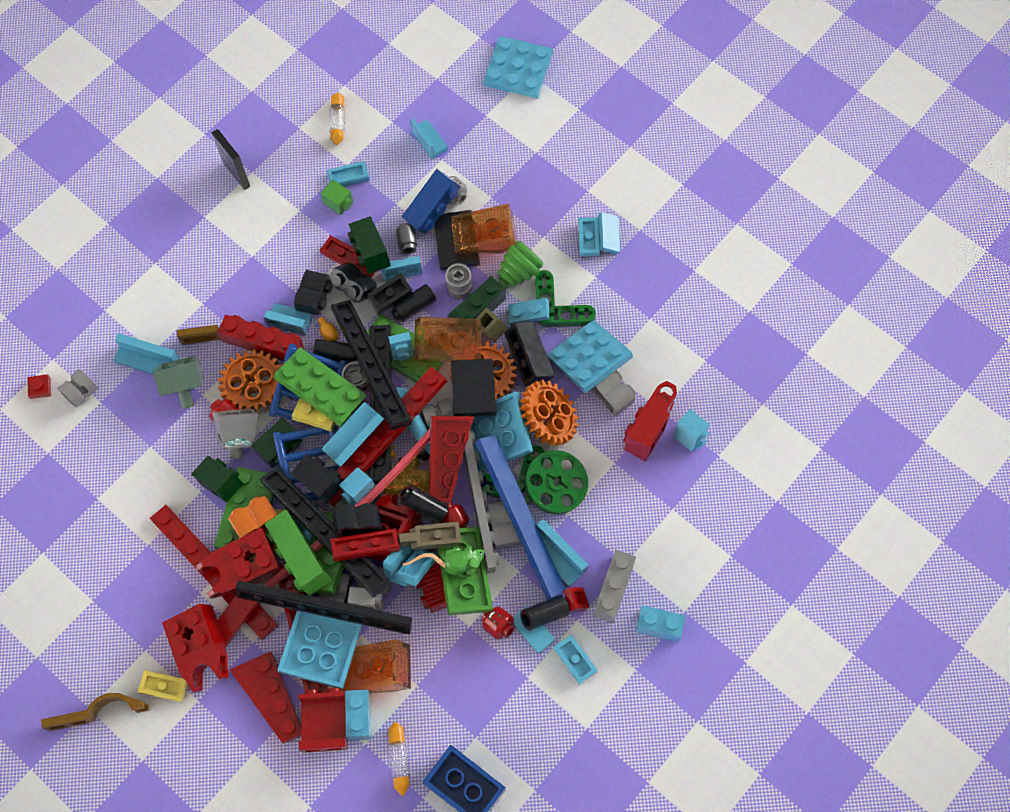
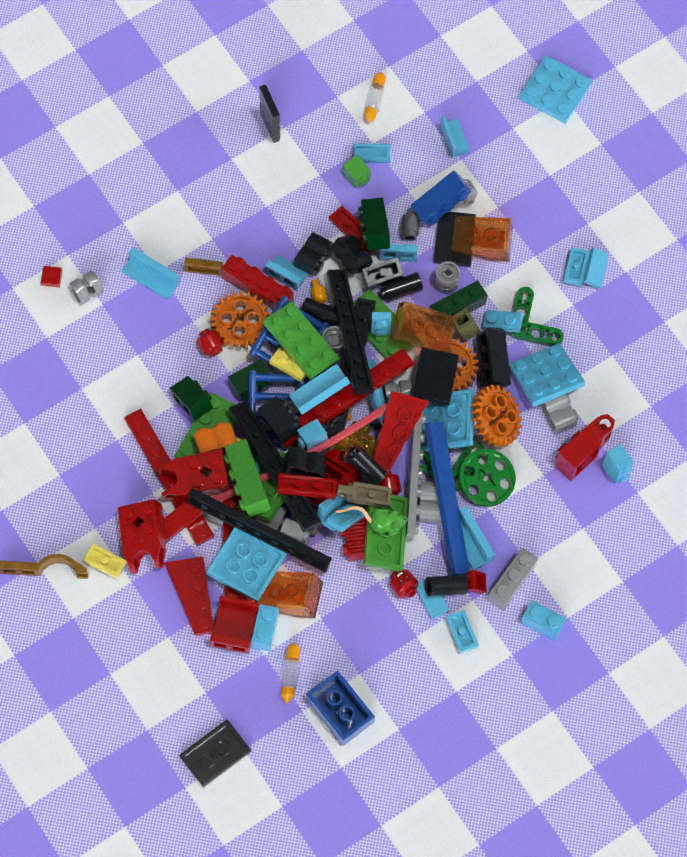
camera: 10 degrees right, 0 degrees up
(179, 377) = (178, 300): sand green brick -> none
(235, 430) = (217, 359): light grey torso -> none
(518, 265) = (505, 276): bright green piece -> none

